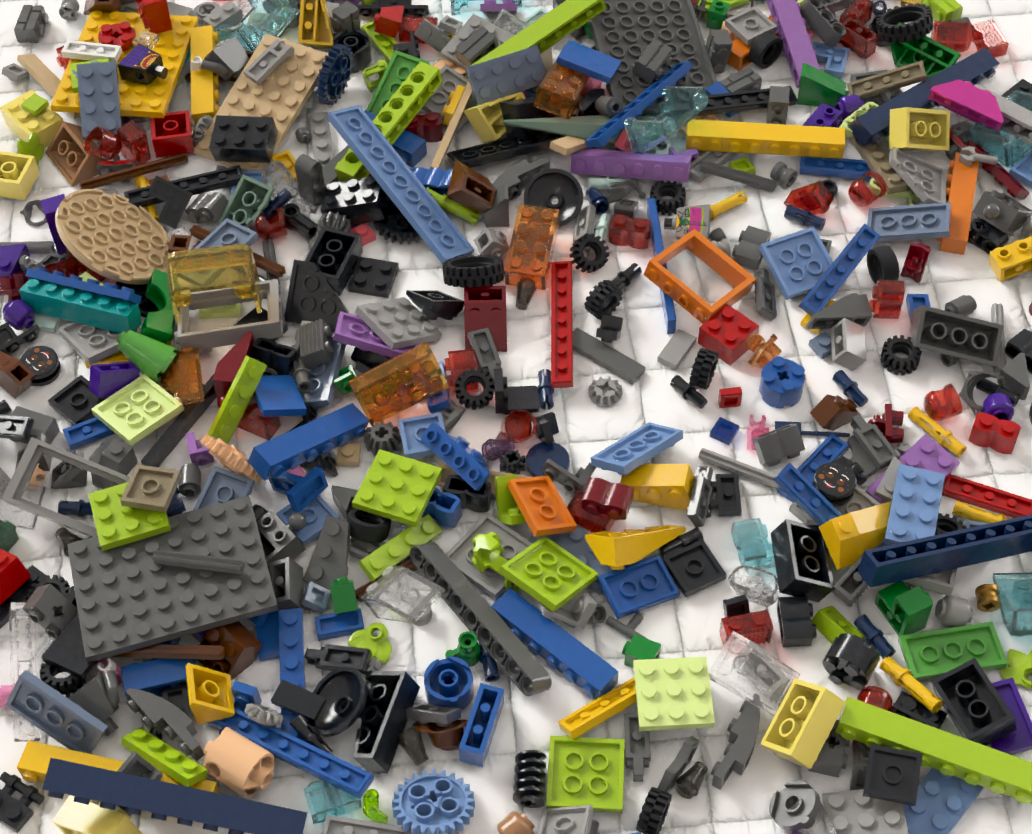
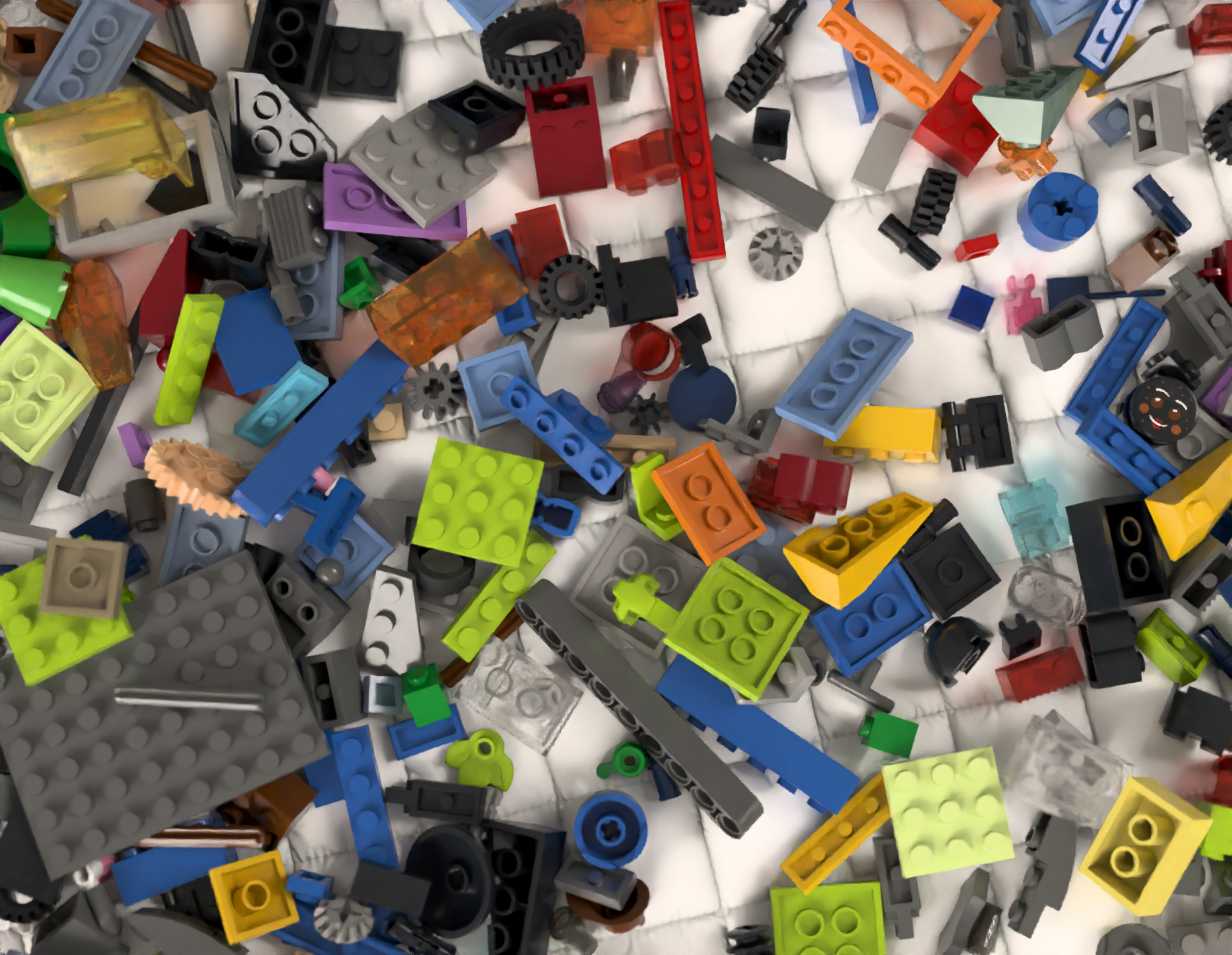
camera: 10 degrees left, 30 degrees up
(299, 416) = (281, 405): none -> medium azure tile
(481, 725) = (669, 890): blue brick -> none
(484, 350) = (575, 206): dark grey hinge -> none
(532, 333) = (648, 161): none -> clear red brick
(693, 608) = (954, 647): none -> black cylinder
(700, 496) = (952, 447): dark grey hinge -> none
(738, 467) = (1003, 378): light grey axle -> none
(765, 319) = (1031, 105): none -> sand green wedge

